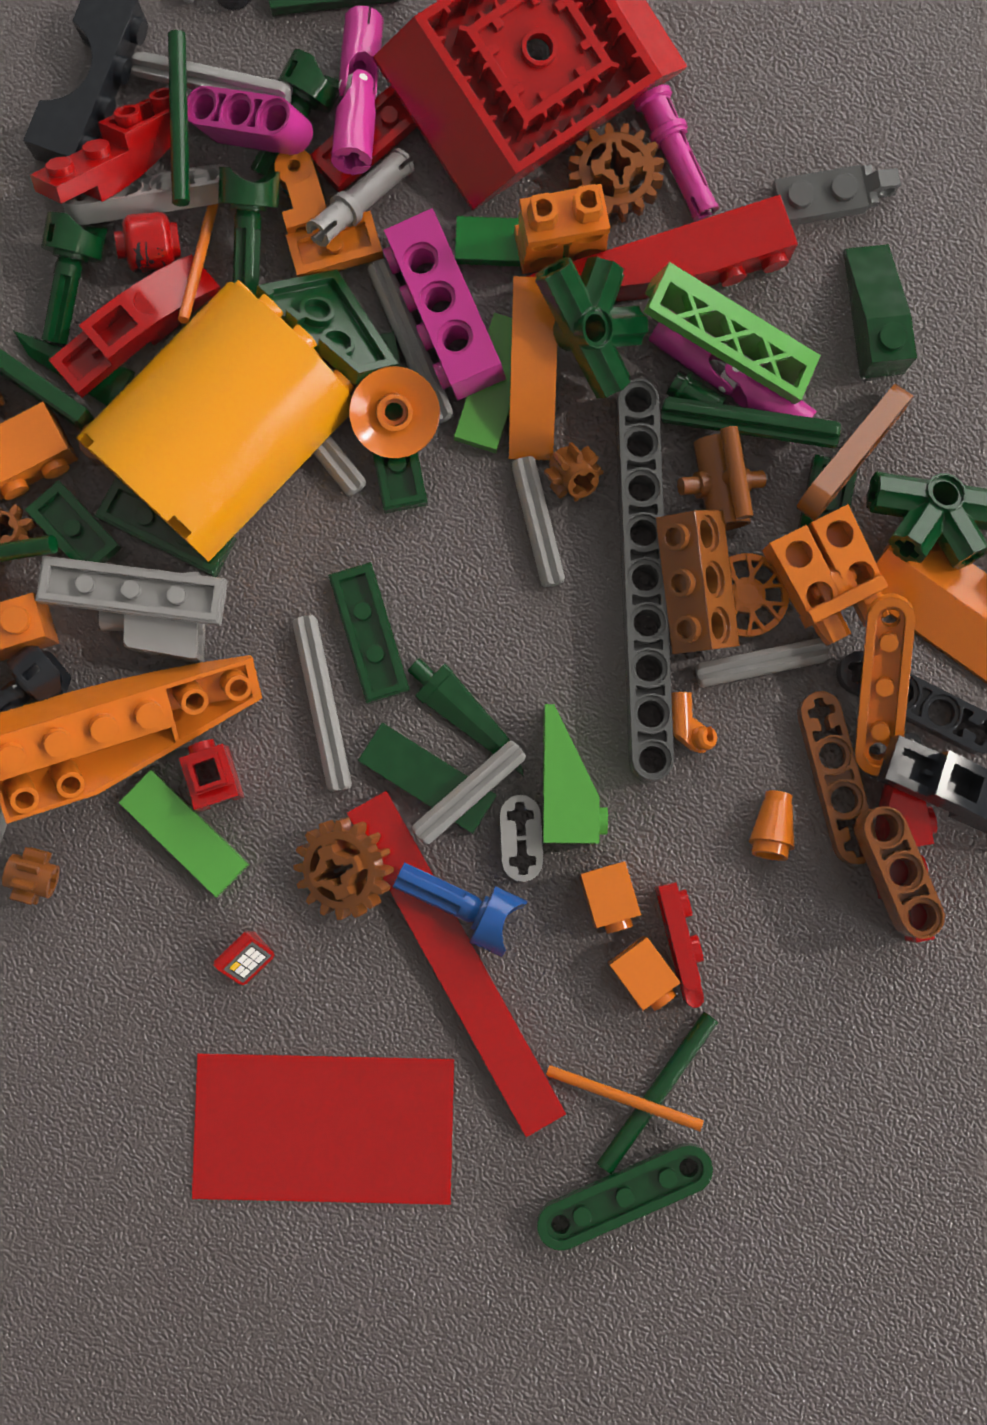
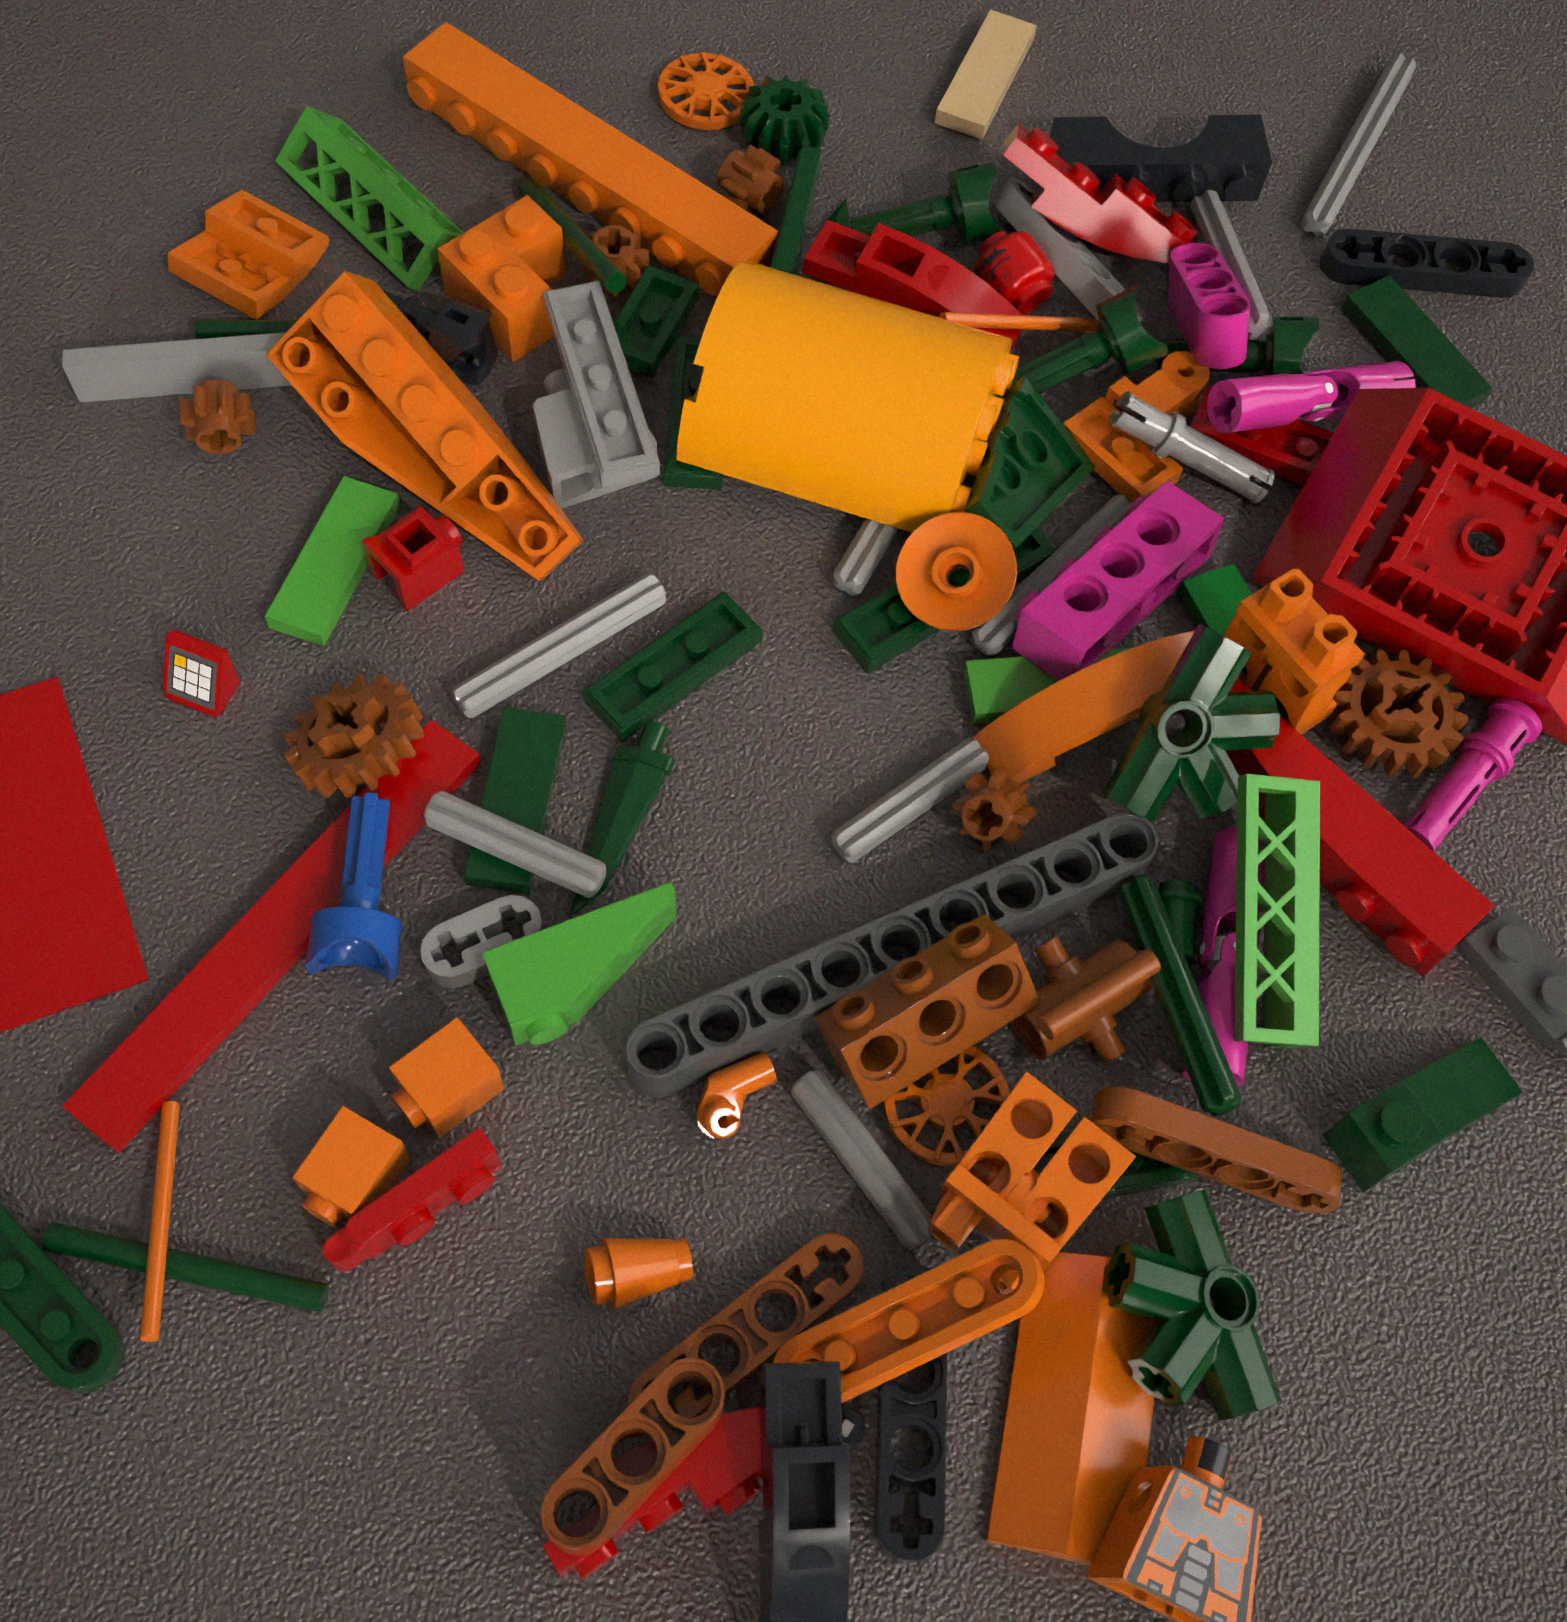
camera: 60 degrees right, 20 degrees down
(178, 118) = (1165, 239): dark green bar -> none

